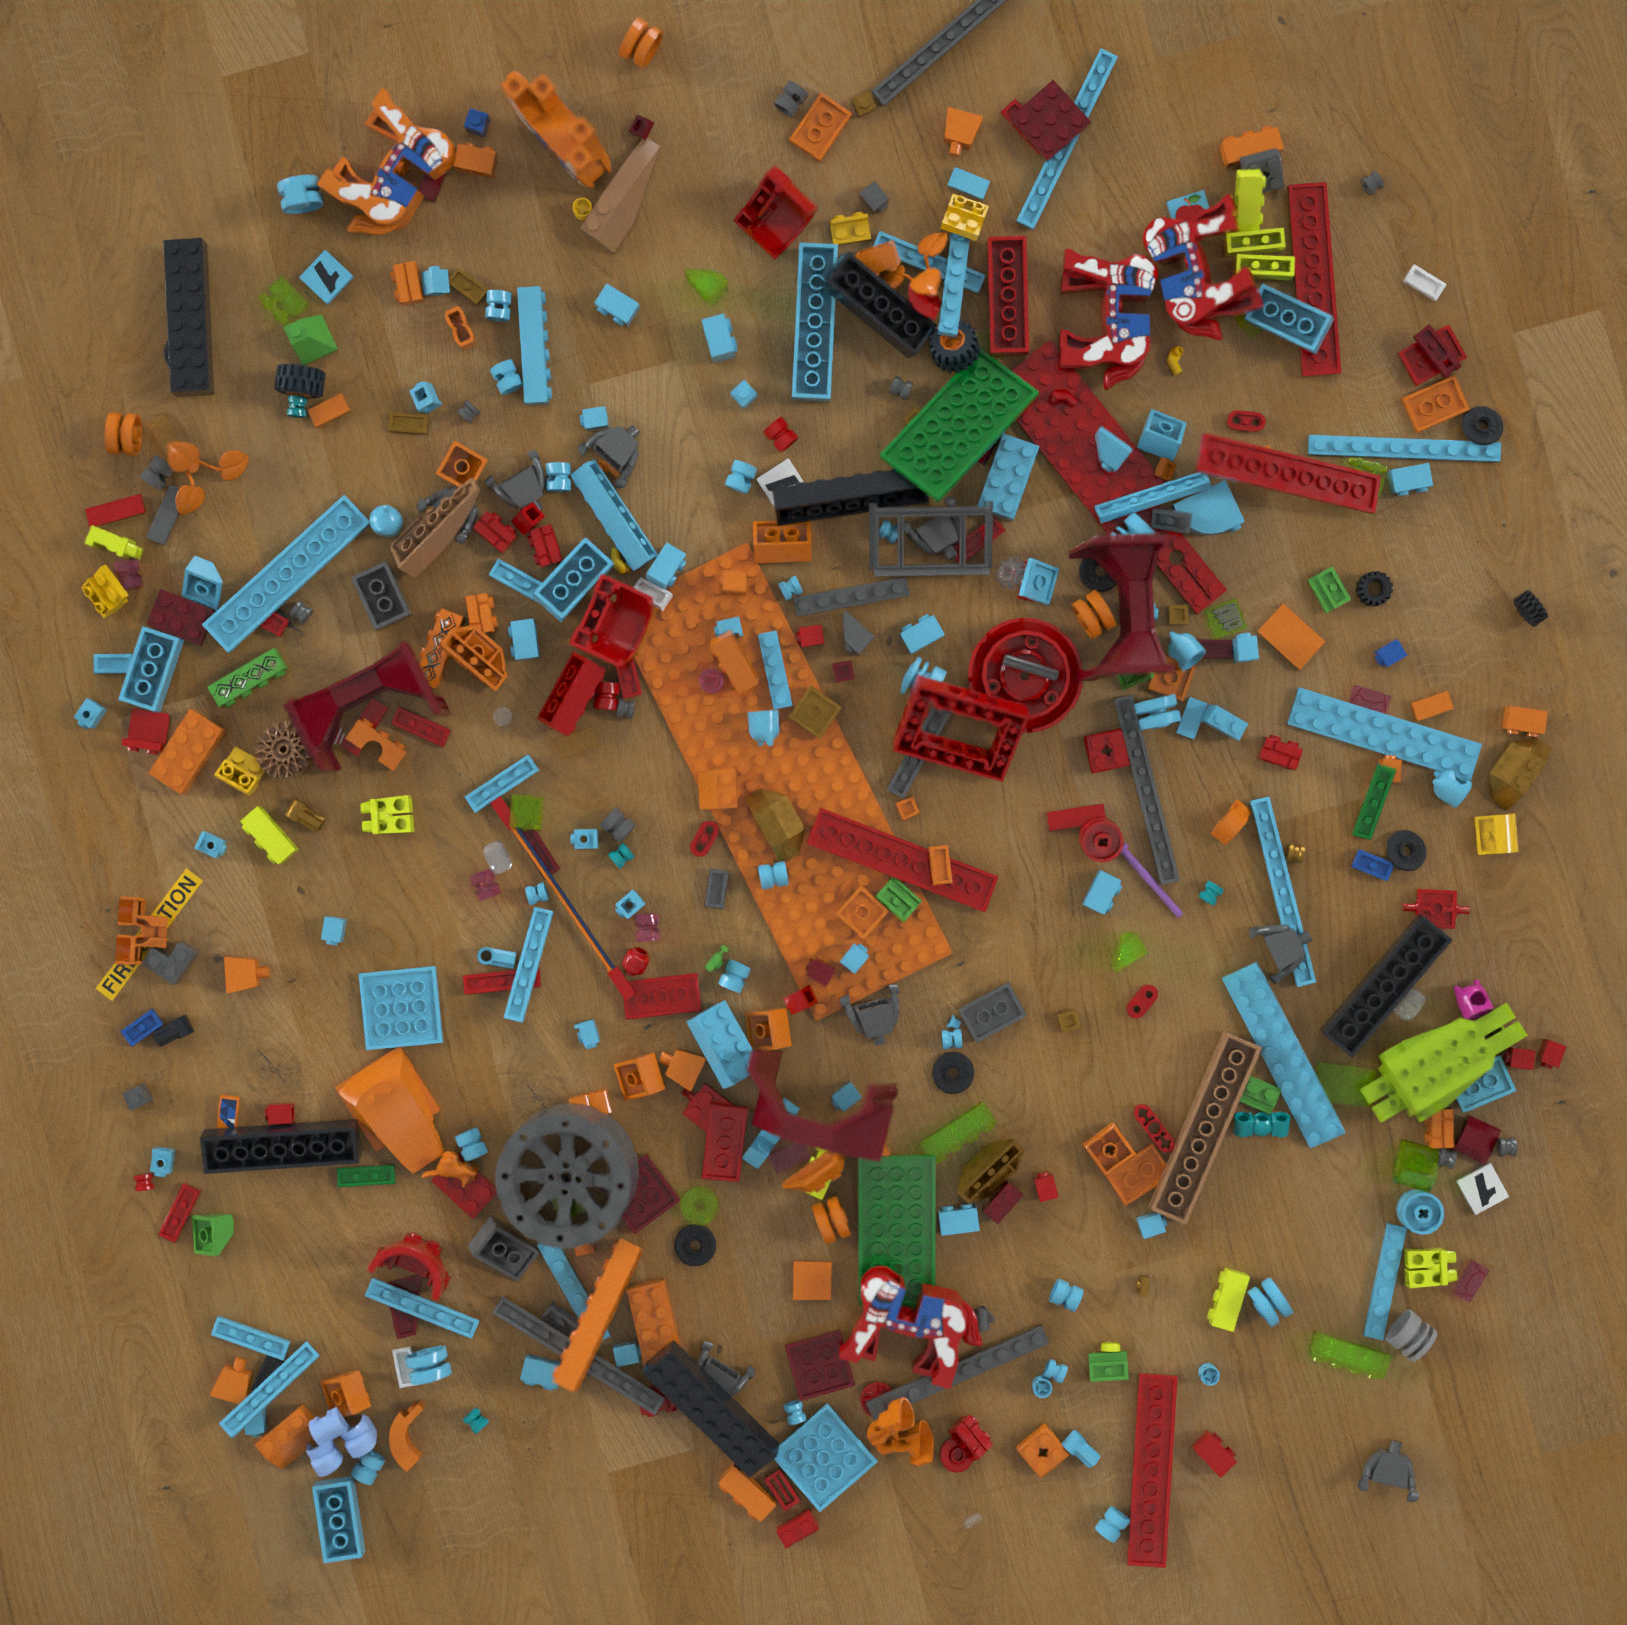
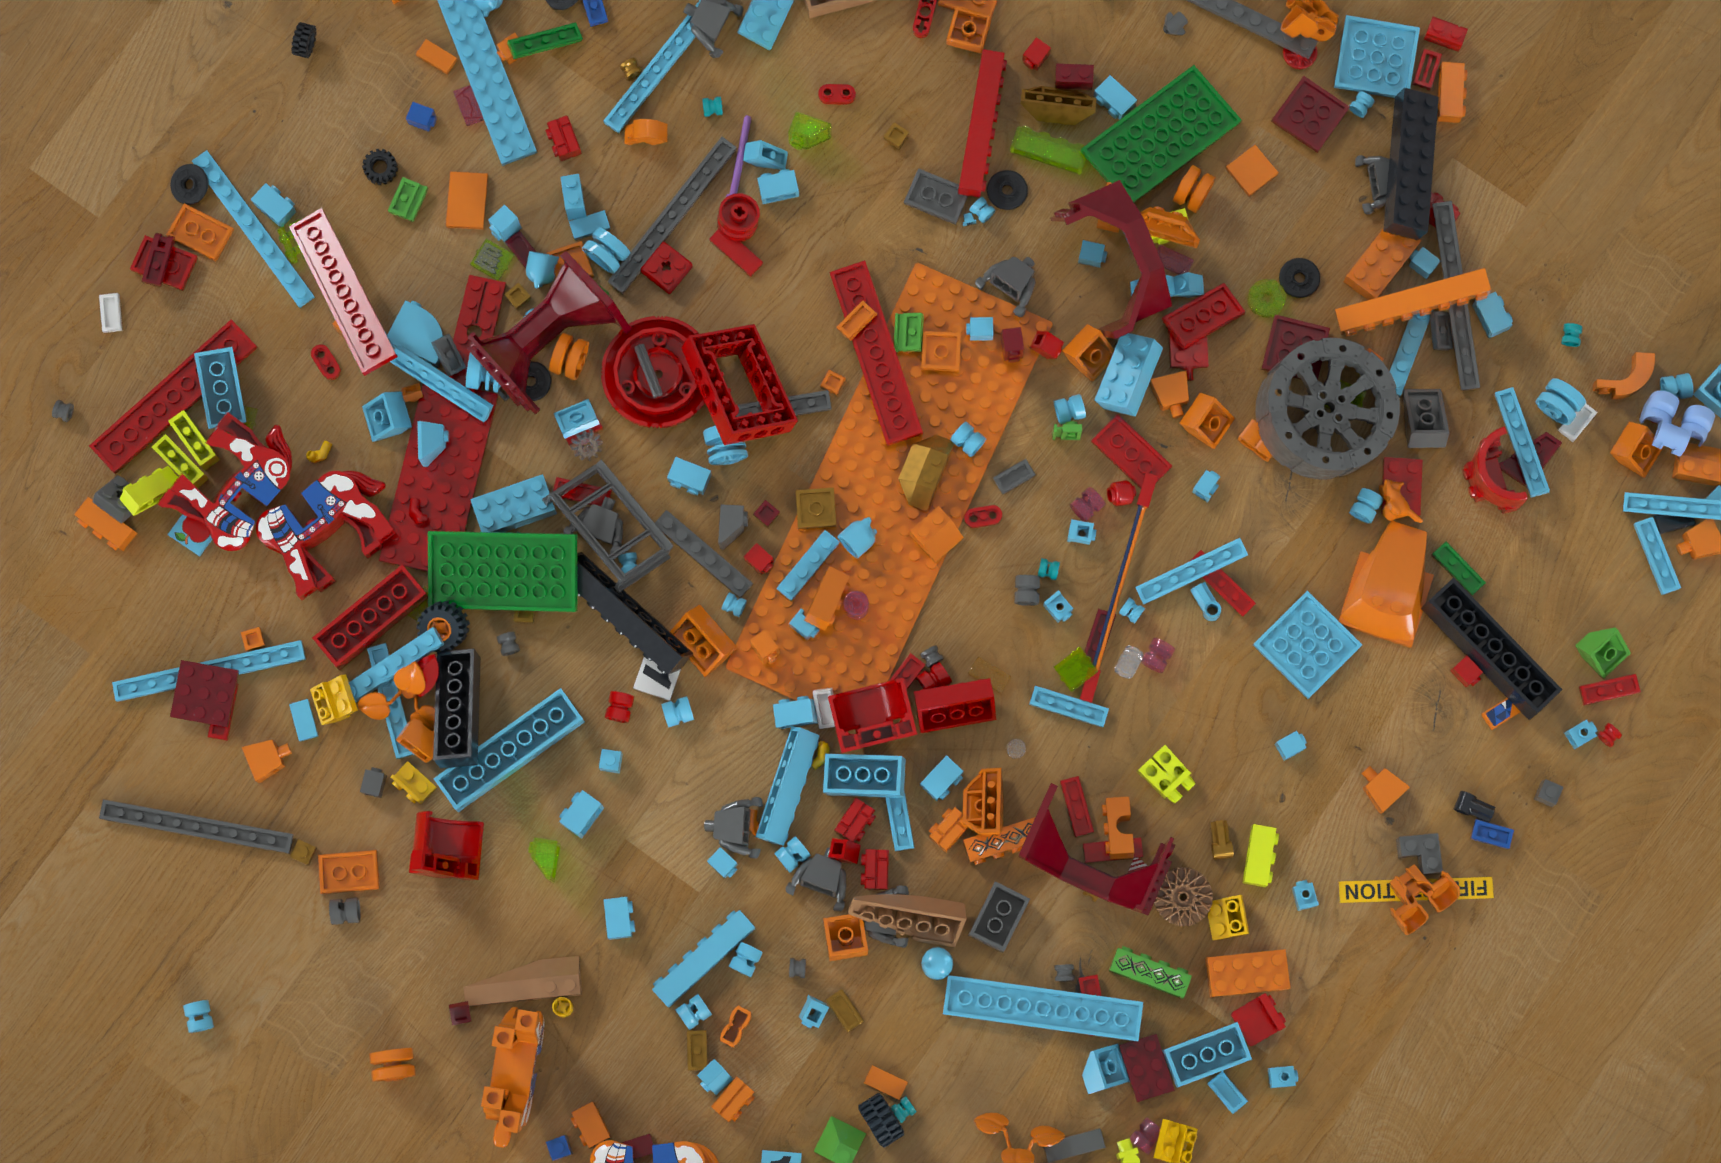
camera: 125 degrees left, 10 degrees down
(938, 1315) = (1202, 54): animal -> none
(1022, 1095) = (981, 123): none -> red brick
(1065, 192) = (253, 639): none -> orange plate
(1135, 902) = (765, 155): none -> medium azure slope

